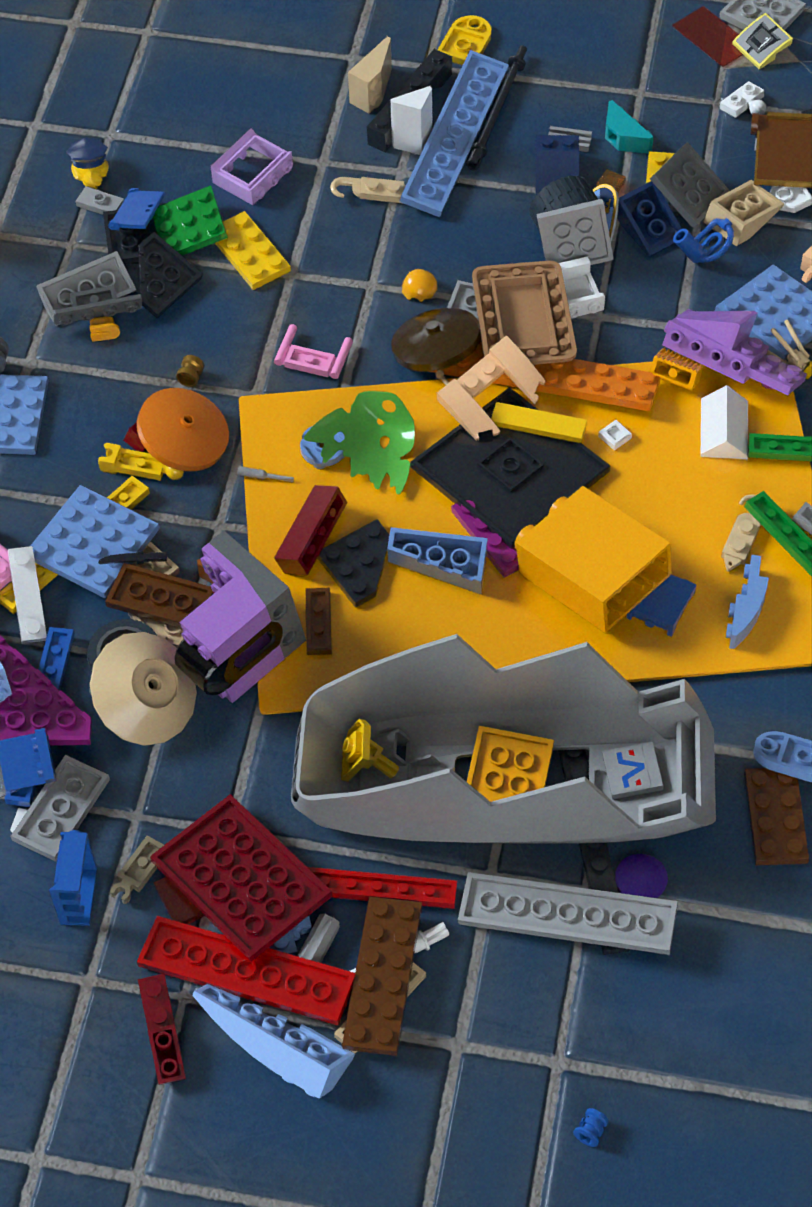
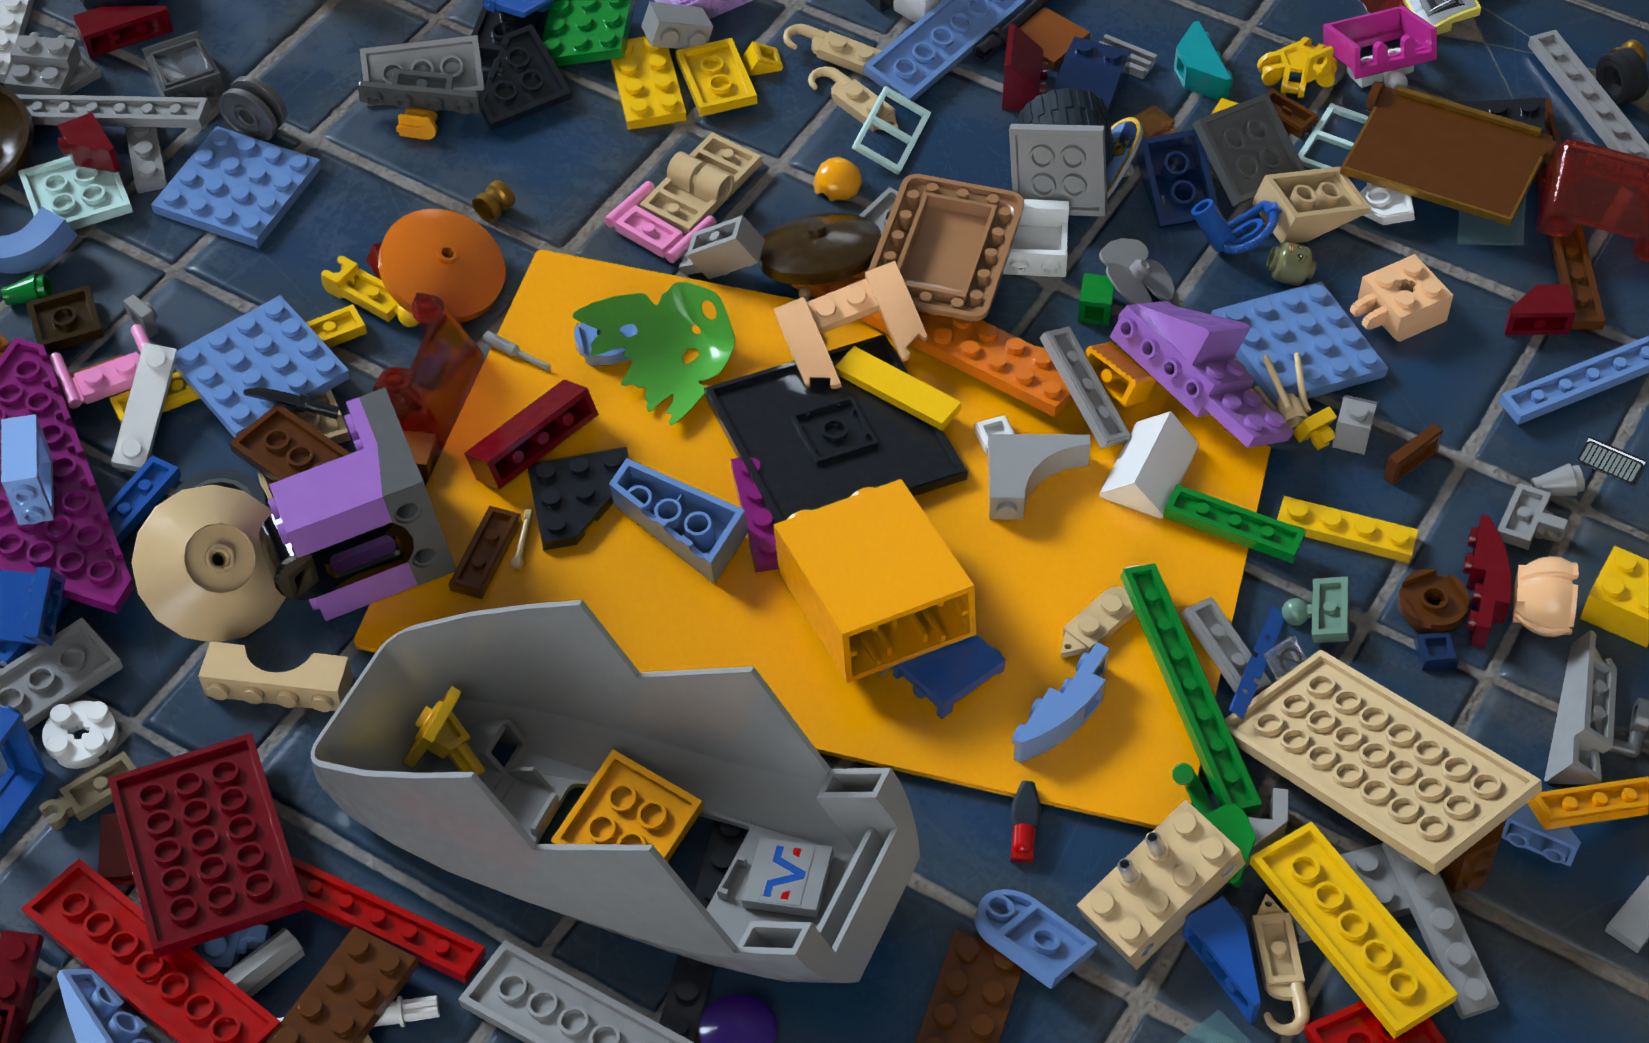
camera: 20 degrees right, 5 degrees down
(119, 838) = (66, 720): none -> white plate
(194, 760) = (315, 684): none -> tan arch
(225, 495) = (441, 375): none -> clear red windscreen
(255, 204) = (676, 25): none -> light grey brick
(298, 233) = (716, 77): none -> yellow plate
(321, 211) = (761, 59): none -> yellow slope
(327, 314) = (700, 182): none -> tan plate
(343, 621) = (517, 562): none -> tan hinge
(372, 359) = (723, 248): none -> light grey hinge
(403, 222) = (853, 96): none -> tan plate
(455, 242) = (872, 118): none -> light aqua window
(510, 171) = (1022, 70): none -> dark red slope
(512, 139) = (1053, 35): none -> dark orange tile
(635, 320) = (1095, 300): none -> green brick
(642, 448) = (1025, 460): none -> light grey arch
(652, 293) = (1130, 271): none -> light grey piece
(662, 384) = (1085, 387): none -> light grey tile
(690, 108) = (1302, 58): none -> yellow piece
(698, 146) = (1293, 123): none -> reddish brown tile
(712, 83) = (1347, 36): none -> dark pink window
(721, 159) = (1317, 133): none -> light aqua window
(749, 257) = (1291, 263): none -> olive head
(755, 686) = (1025, 820): none -> piece

